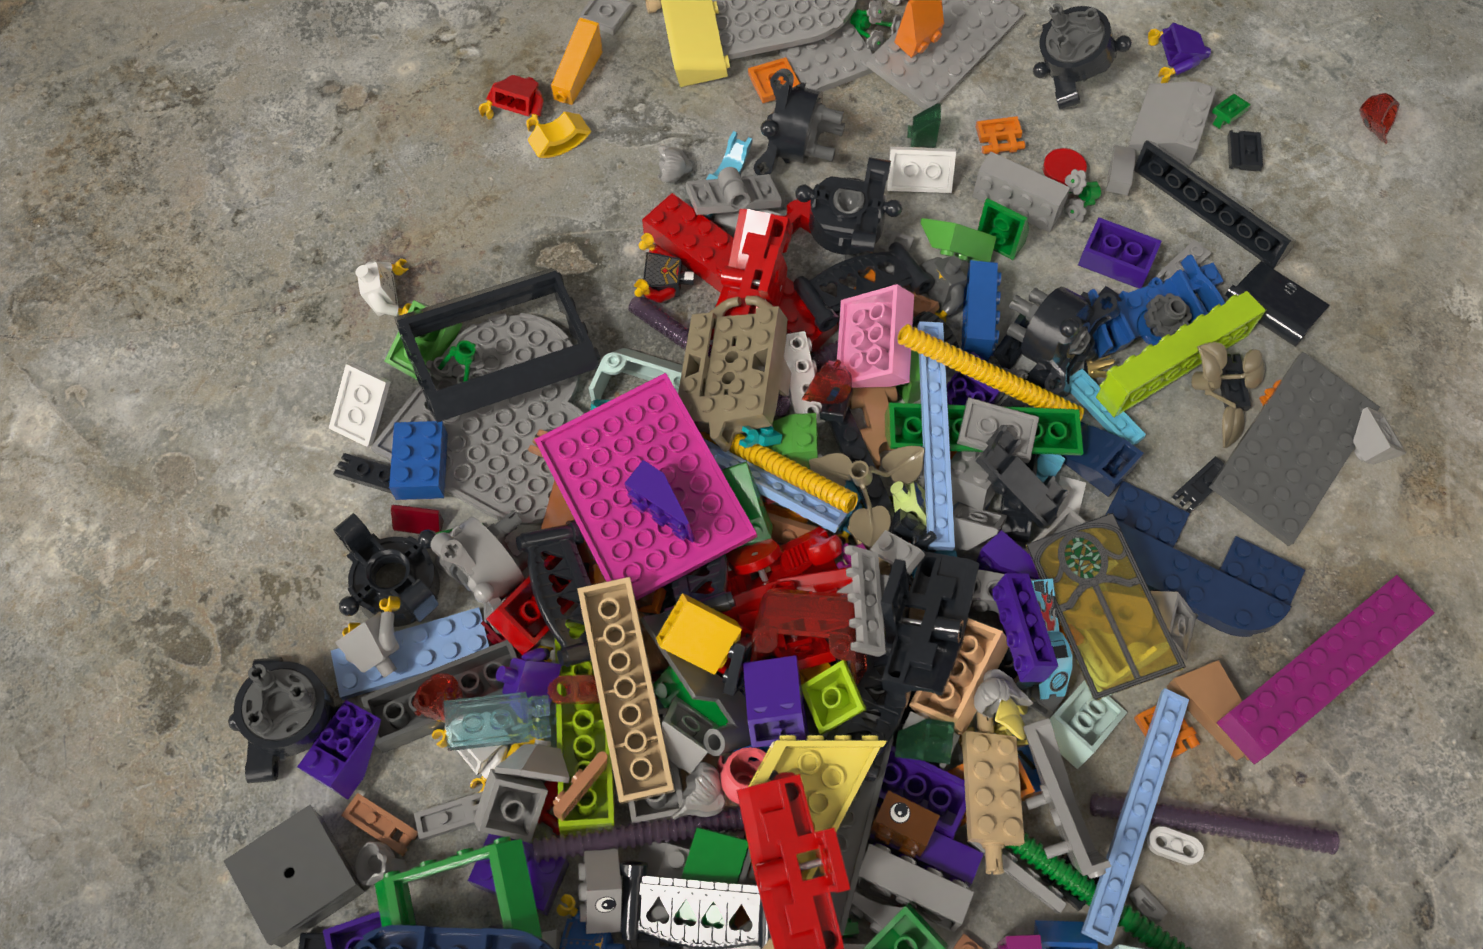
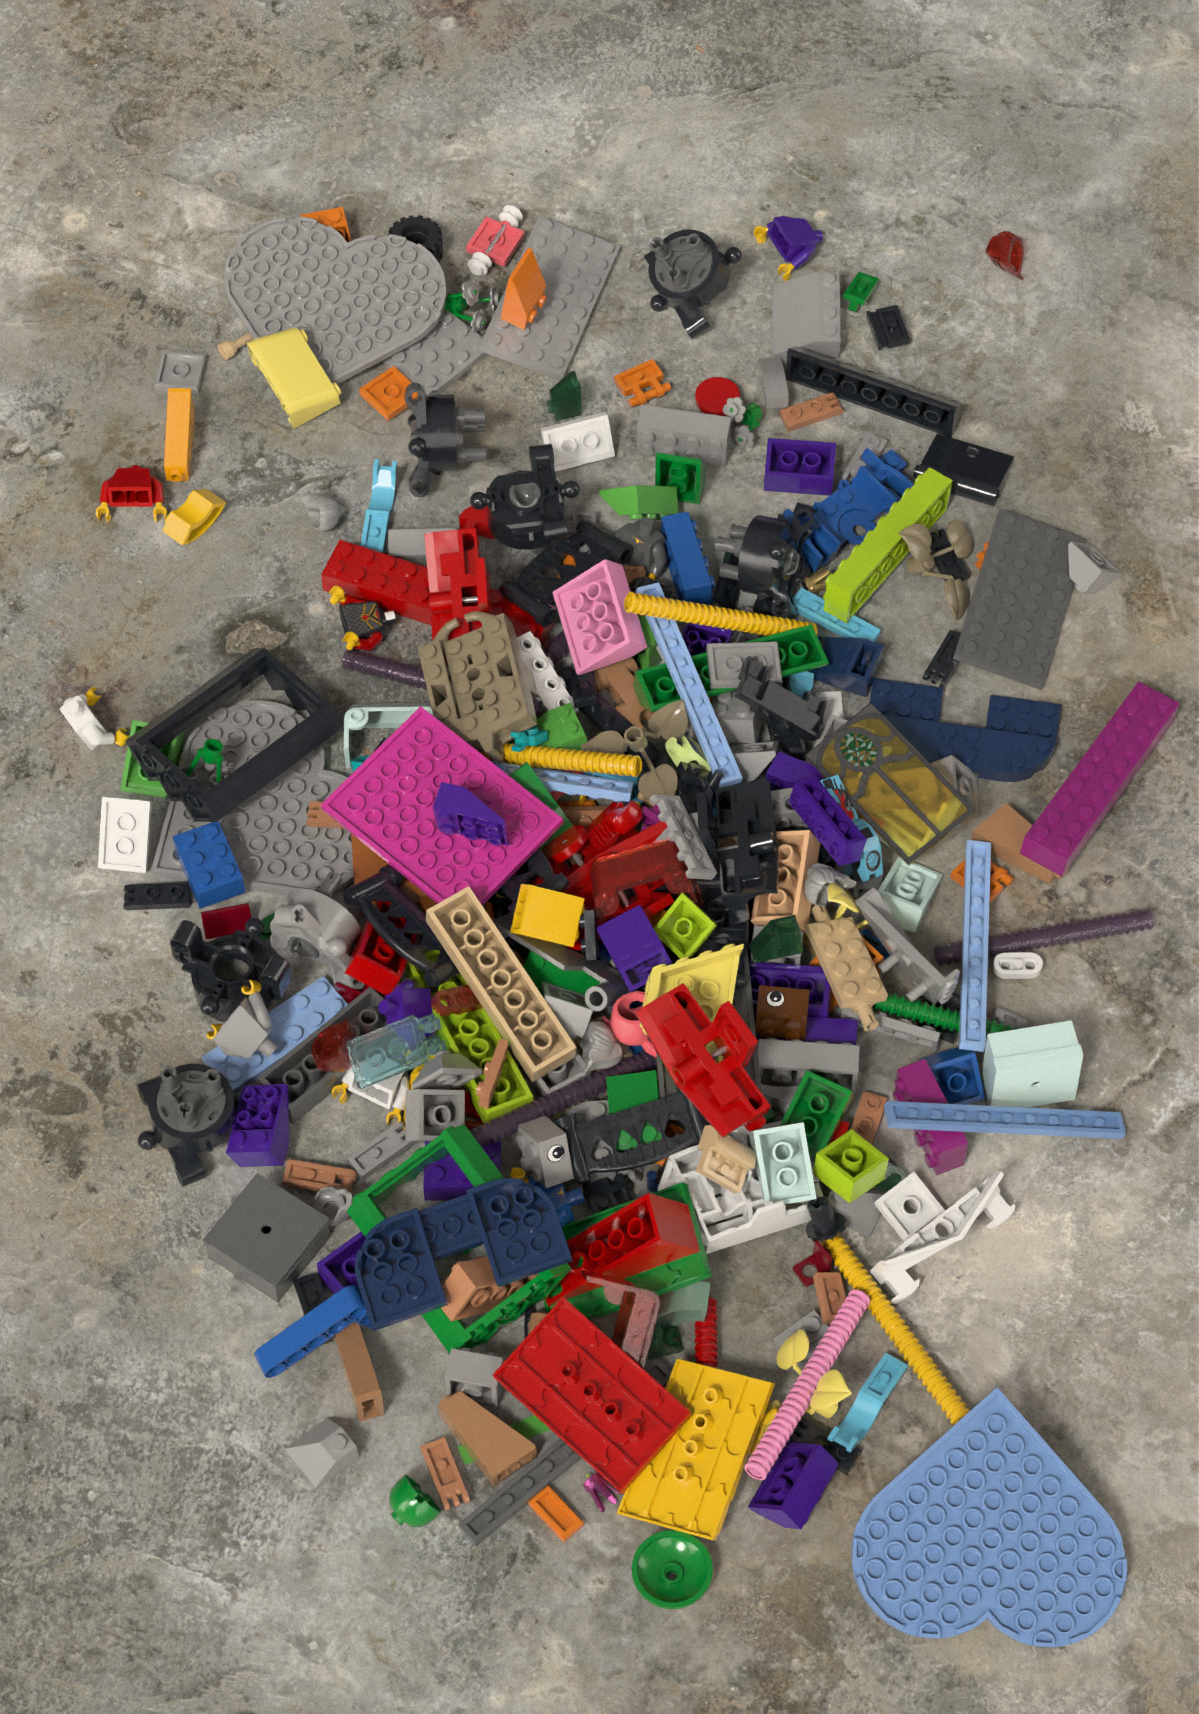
camera: 20 degrees left, 5 degrees down
(733, 193) = (401, 521): light grey plate -> none
(830, 384) = (575, 671): clear red helmet -> none
(892, 547) = (689, 792): light grey plate -> none
(1147, 206) = (811, 411): none -> nougat hinge
(1166, 314) = (863, 512): dark grey plant -> none

